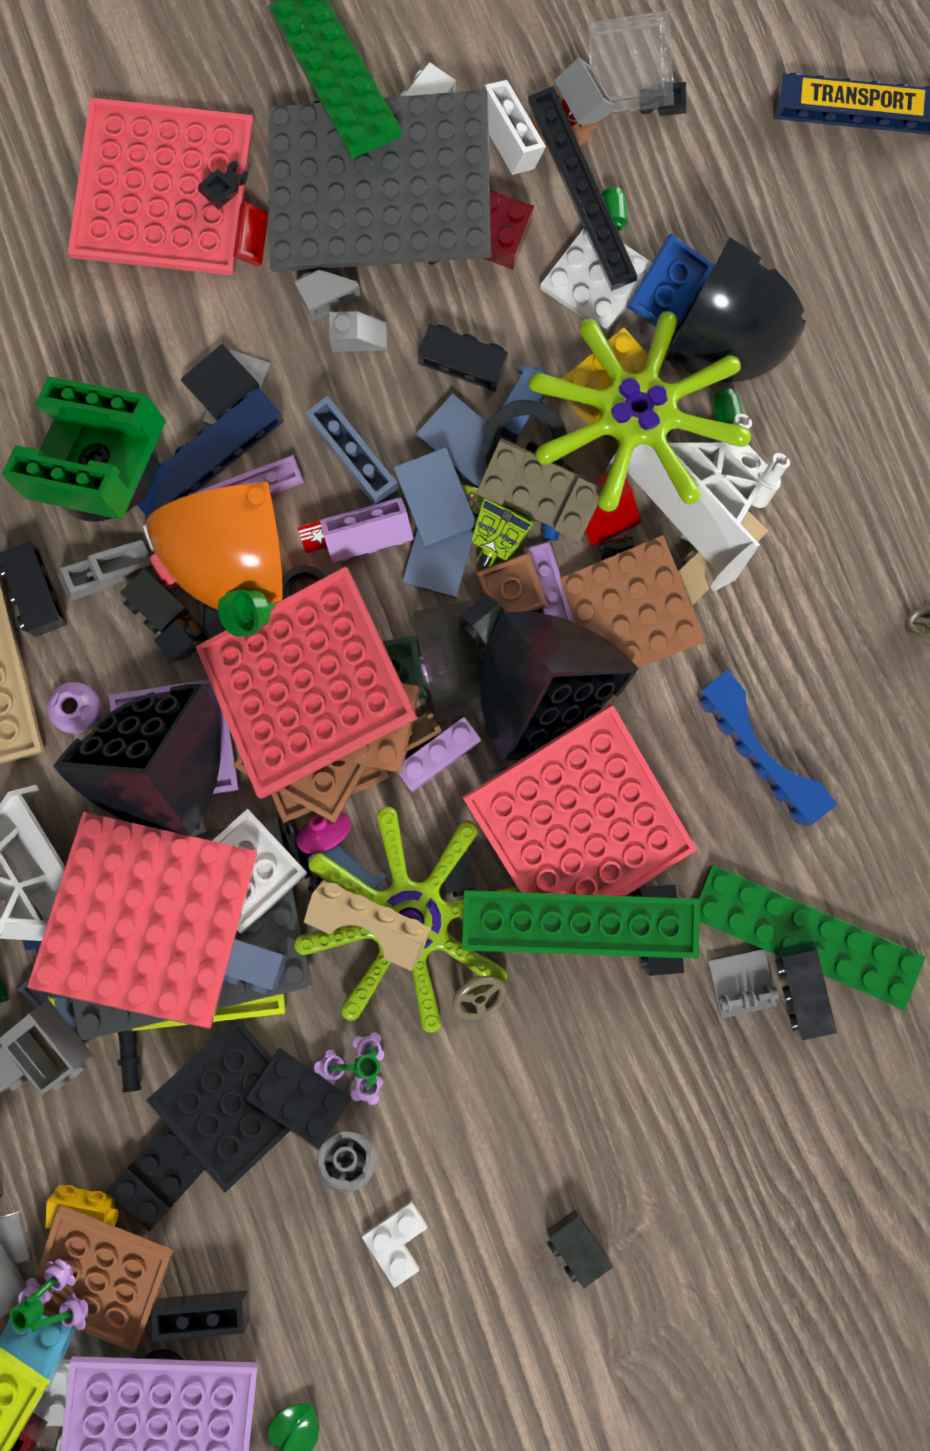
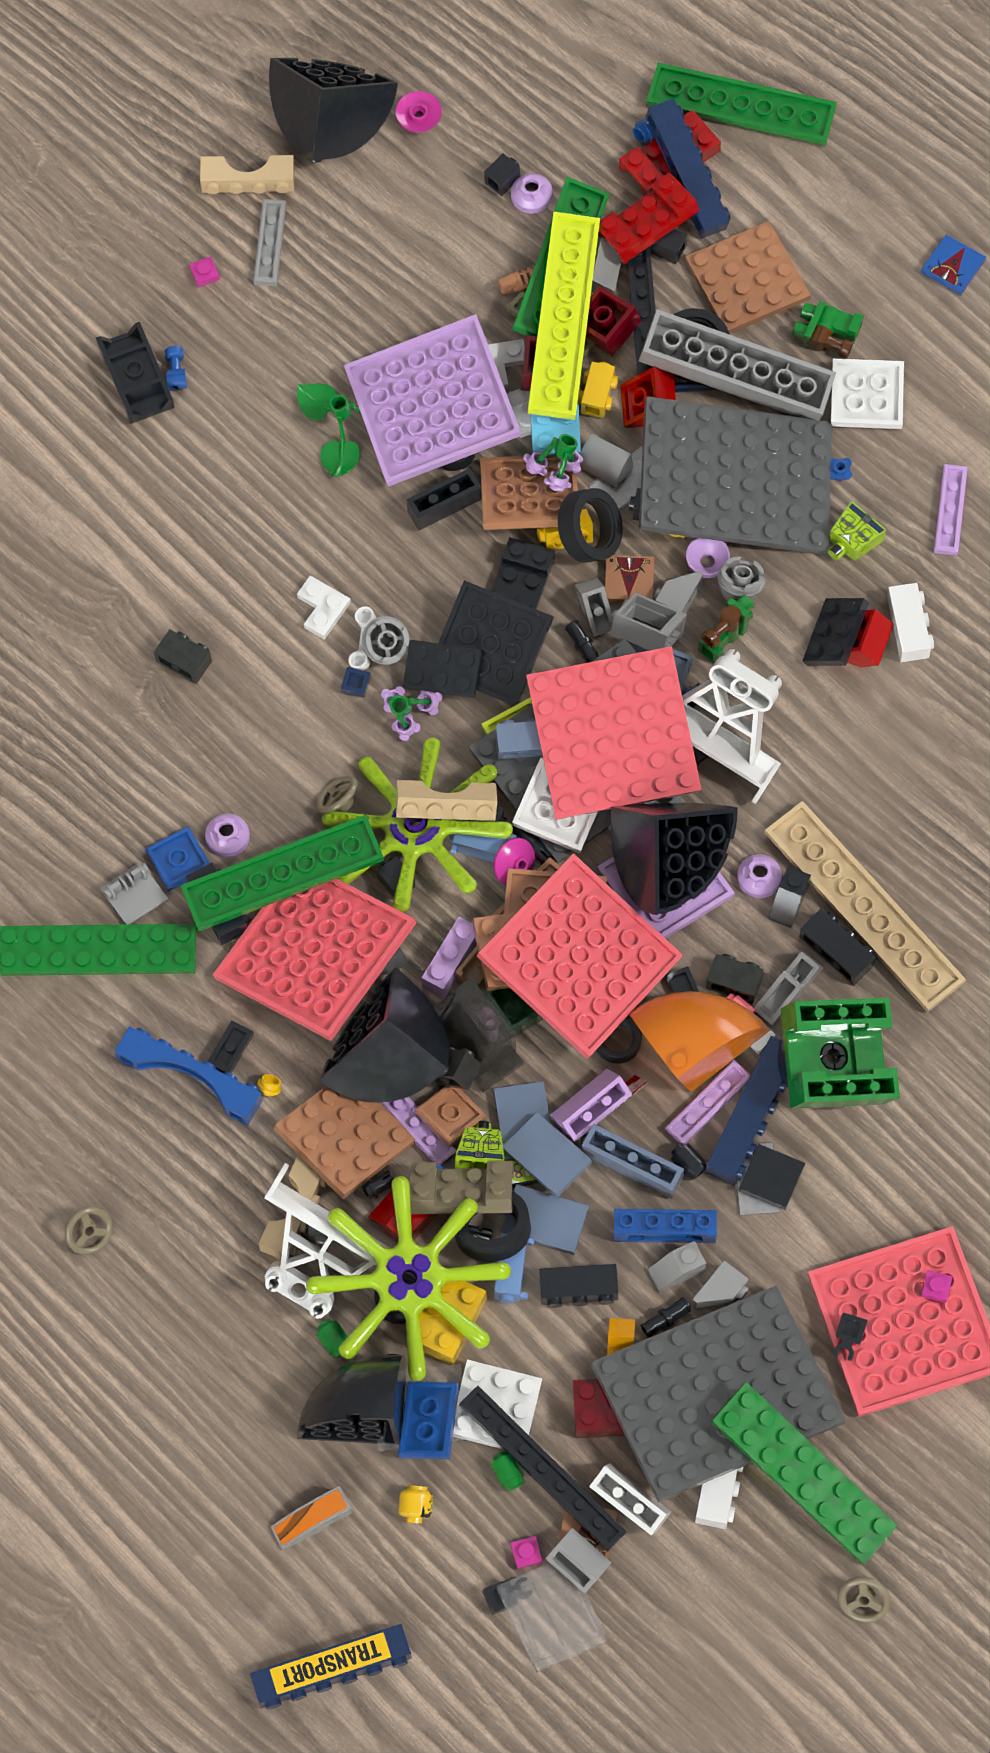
camera: 165 degrees right, 15 degrees down
(41, 1121) = (629, 576): none -> nougat tile
(52, 666) = (789, 896): none -> black slope
(69, 1210) = (570, 529): none -> black tyre
(94, 1101) = (594, 606): none -> light grey slope
(114, 198) = (936, 1286): none -> dark pink plate
(180, 639) = (698, 957): black brick -> none
(244, 612) = (650, 987): green piece -> none
(250, 234) = (809, 1312): red tile -> none
(294, 434) = (688, 1159): none -> black brick
(350, 376) = (665, 1225): none -> blue brick
(355, 1202) = (359, 659): none -> white bar
(392, 290) = (665, 1317): none -> black pin
(400, 1128) = (355, 682): none -> dark blue plate
(446, 288) = (620, 1334): none -> light orange slope
(601, 1000) = (227, 845): none -> lavender piece
(628, 133) = (526, 1552): none -> dark pink plate
(678, 1004) = (177, 857): none -> blue tile
(685, 701) = (269, 1085): none -> yellow plate
(709, 760) = (230, 1047): none -> black plate
(715, 217) = (415, 1503): none -> yellow head
(805, 991) = (84, 903): black brick -> none
(819, 246) = (311, 1518): none -> slope

